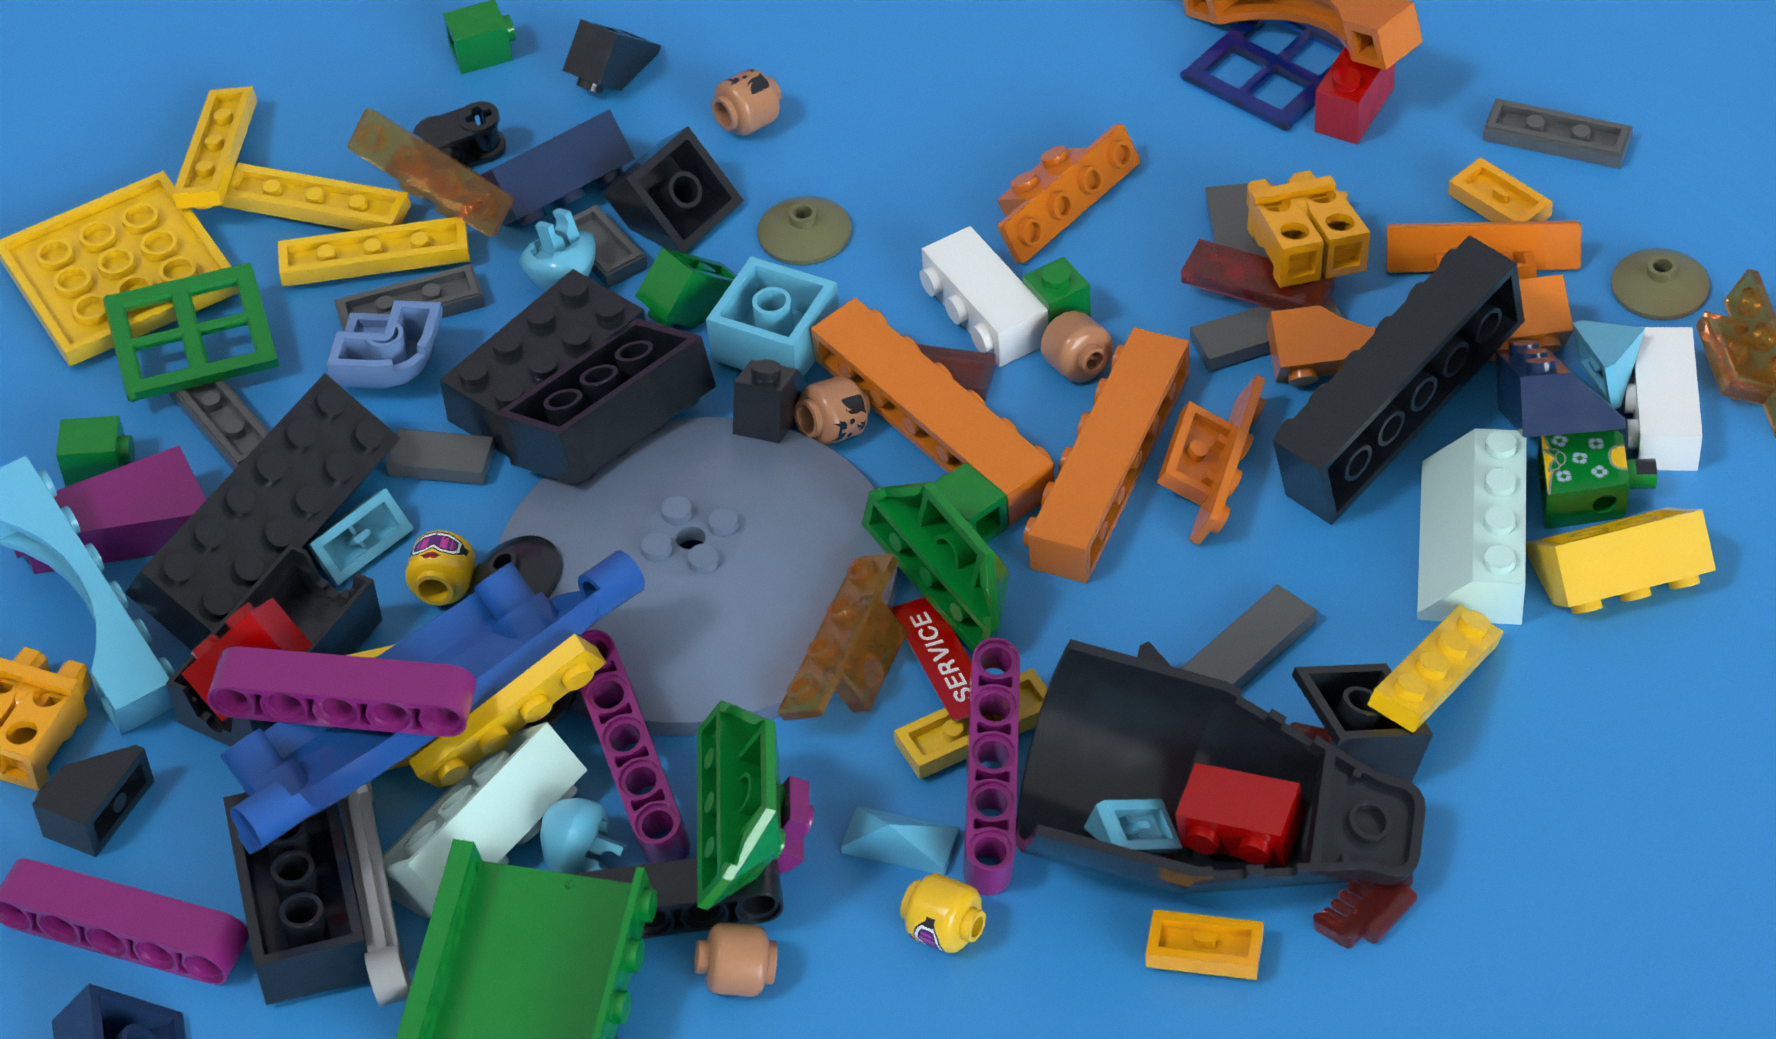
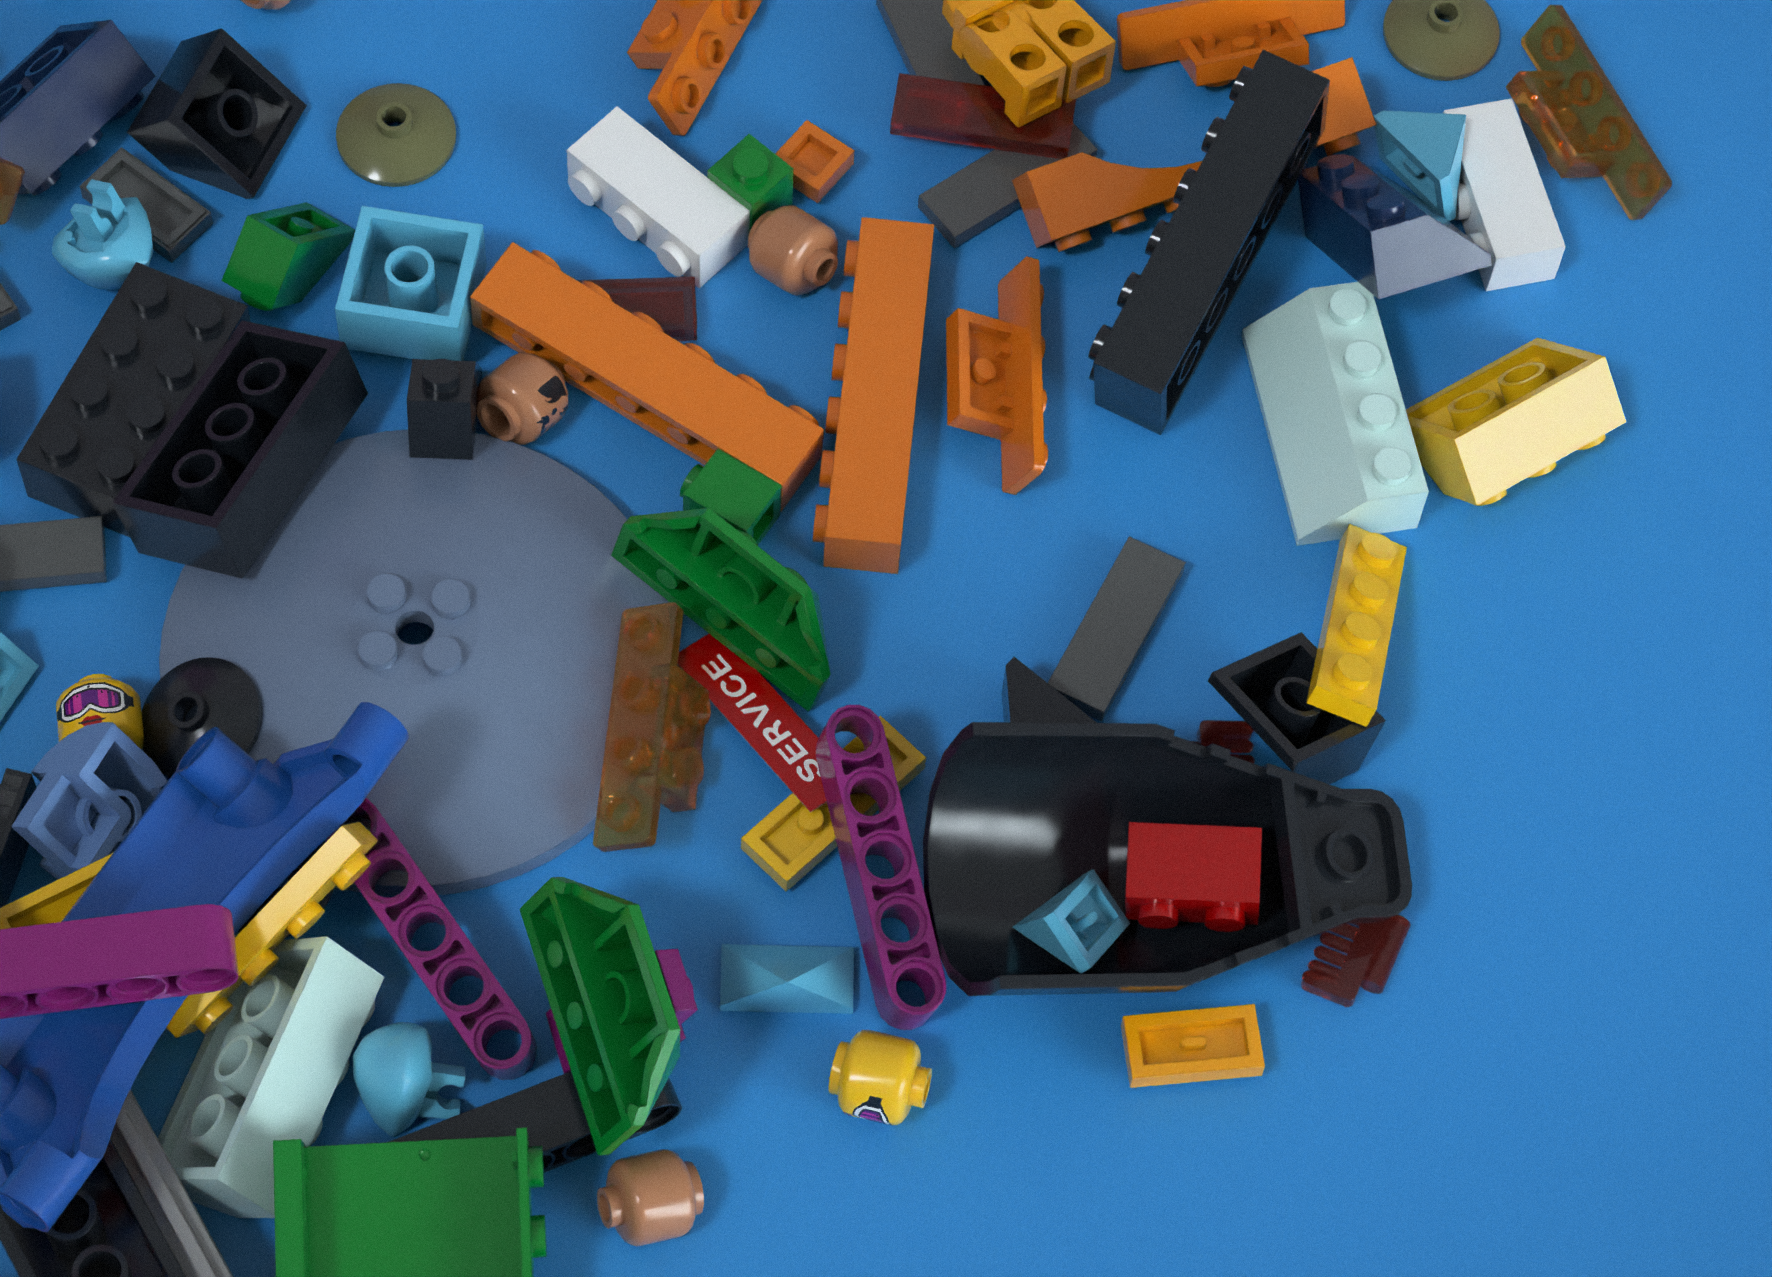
camera: 25 degrees left, 15 degrees up
(407, 600) = (87, 797): none -> medium blue brick
(1116, 292) = (816, 159): none -> orange plate
(1588, 477) = (1446, 326): green torso -> none

